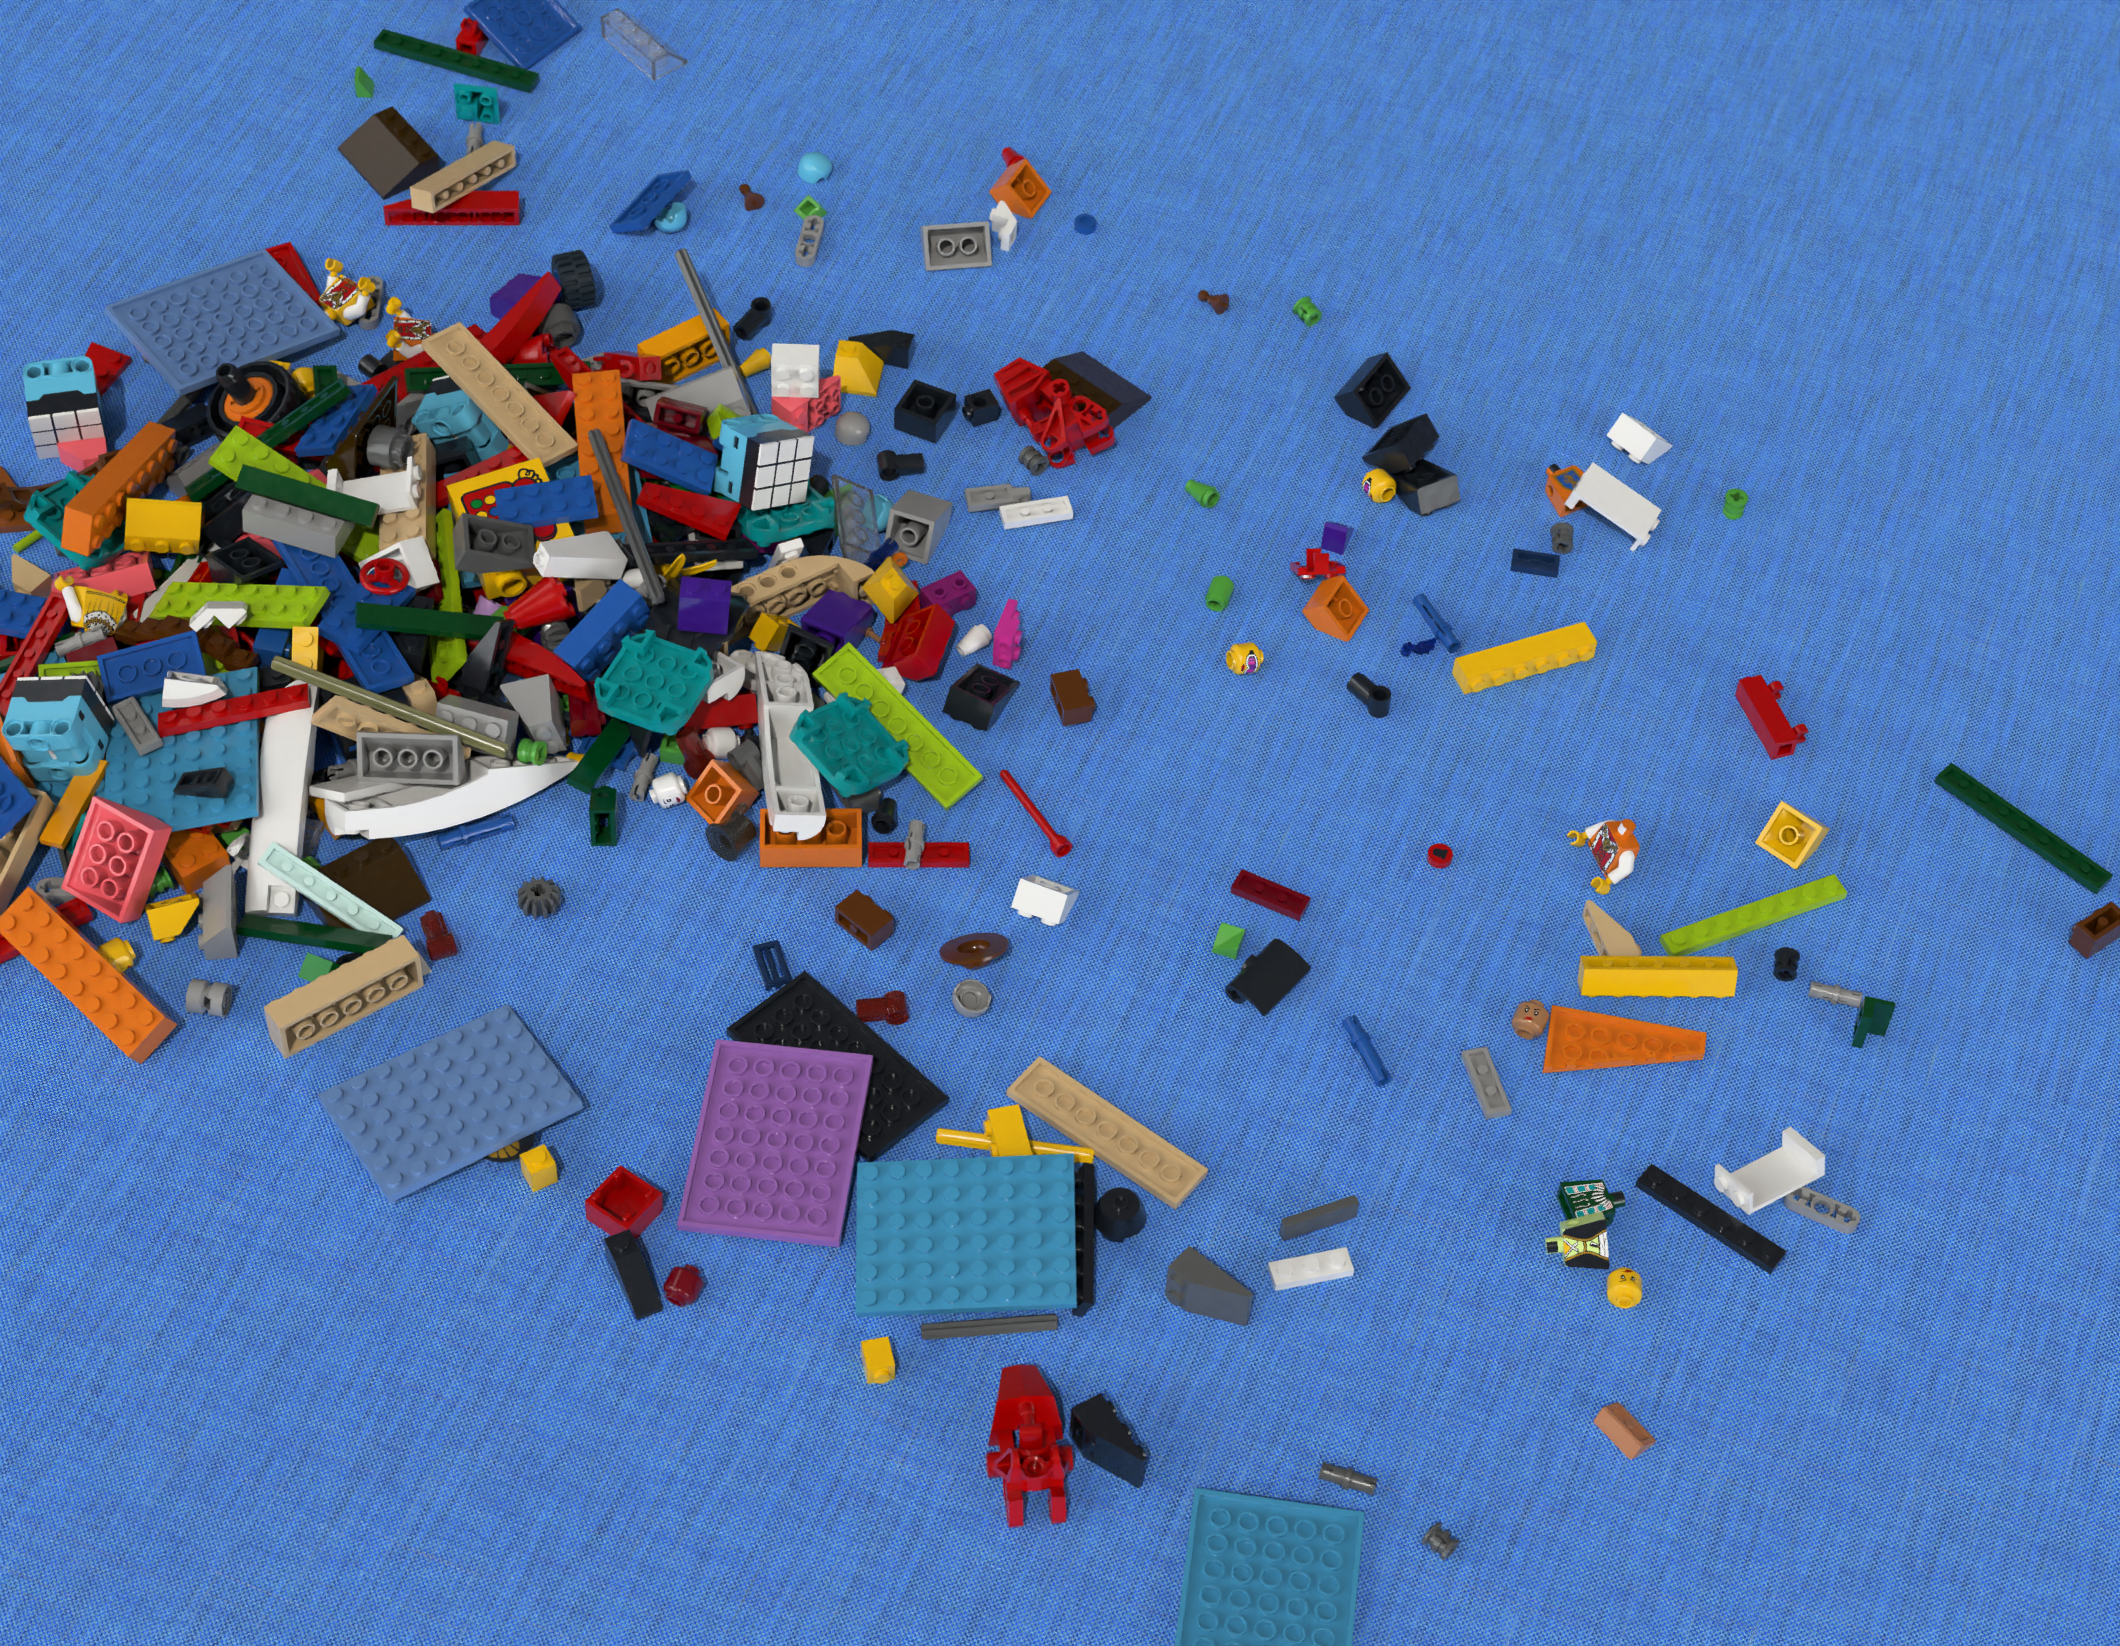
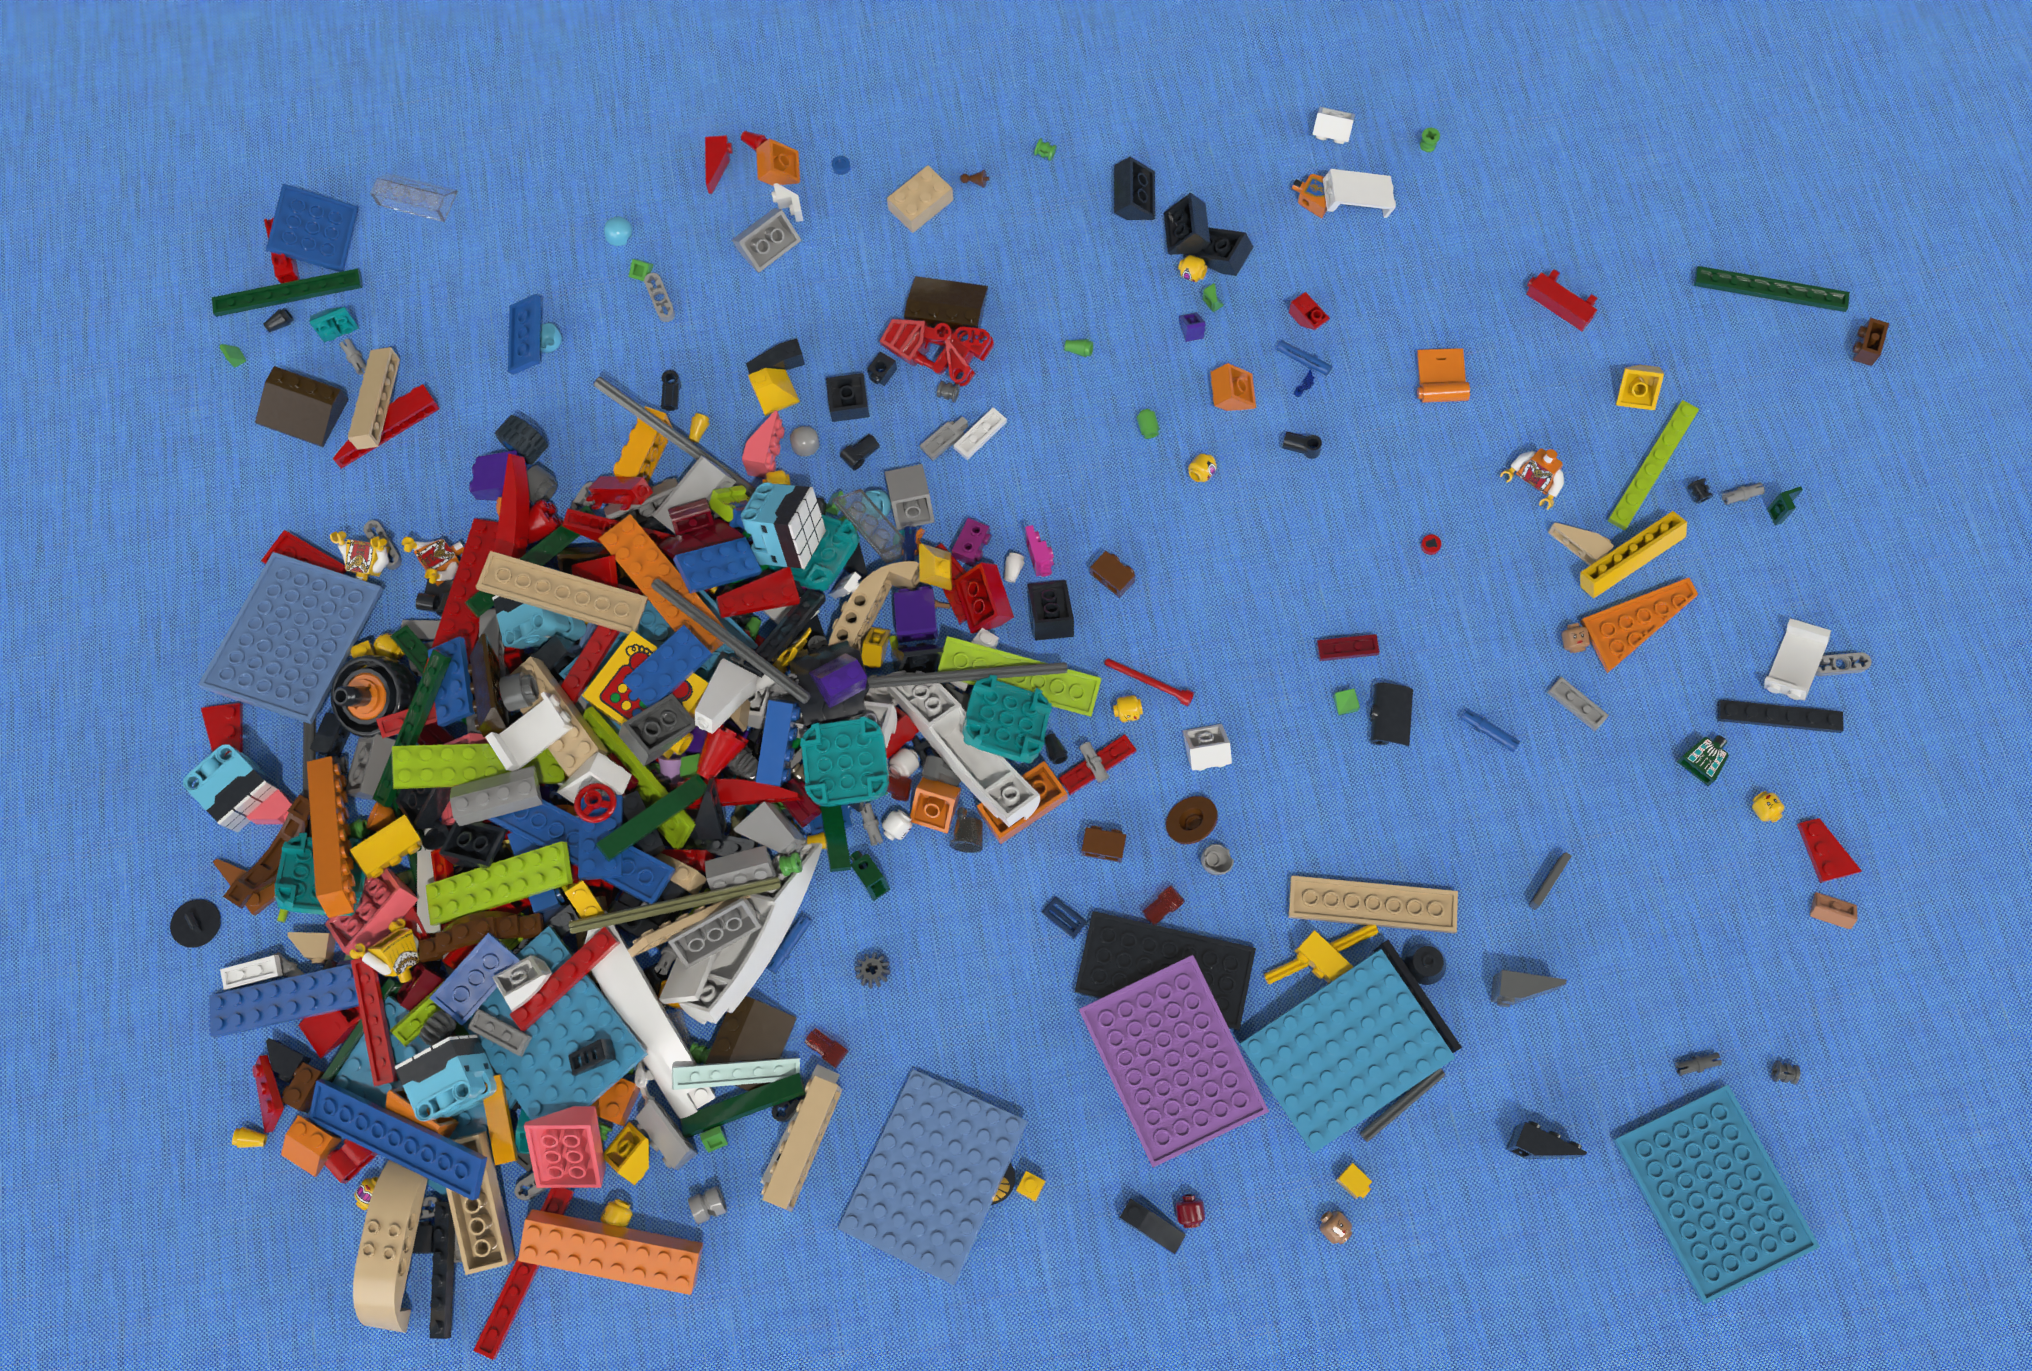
camera: 25 degrees left, 20 degrees up
(80, 640) = (402, 985): light grey pin -> none
(226, 611) = (499, 905): white slope -> none
(262, 948) = (713, 1139): none -> bright green plate
(307, 496) = (488, 771): dark green tile -> none
(316, 966) = (770, 1132): green brick -> none
(429, 78) = (278, 320): none -> black cone
(623, 1204) = (1108, 1177): red container -> none
(752, 200) = (593, 286): reddish brown piece -> none
(795, 370) = (749, 431): white brick -> none
(823, 1389) = (1335, 1227): none -> medium nougat head
(837, 686) = (967, 675): none -> dark grey axle
(960, 158) = (716, 159): none -> red slope
(989, 820) = (1128, 708): none -> yellow head
(1039, 1460) = (1470, 1157): red piece -> none
(1141, 287) = (920, 199): none -> tan brick
(1310, 1269) = (1568, 921): white plate -> none
(1317, 564) = (1200, 365): red piece -> none
(1379, 521) = (1211, 299): none -> bright green slope
(1470, 580) = (1307, 312): none -> red slope
(1524, 658) = (1380, 351): yellow brick -> none
(1535, 563) = (1332, 269): dark blue tile -> none
(1562, 538) = (1338, 237): dark grey bush -> none
(1576, 715) = (1442, 376): none -> orange door
(1582, 1242) = (1725, 792): torso -> none
(1660, 1372) = (1825, 852): none -> red wing

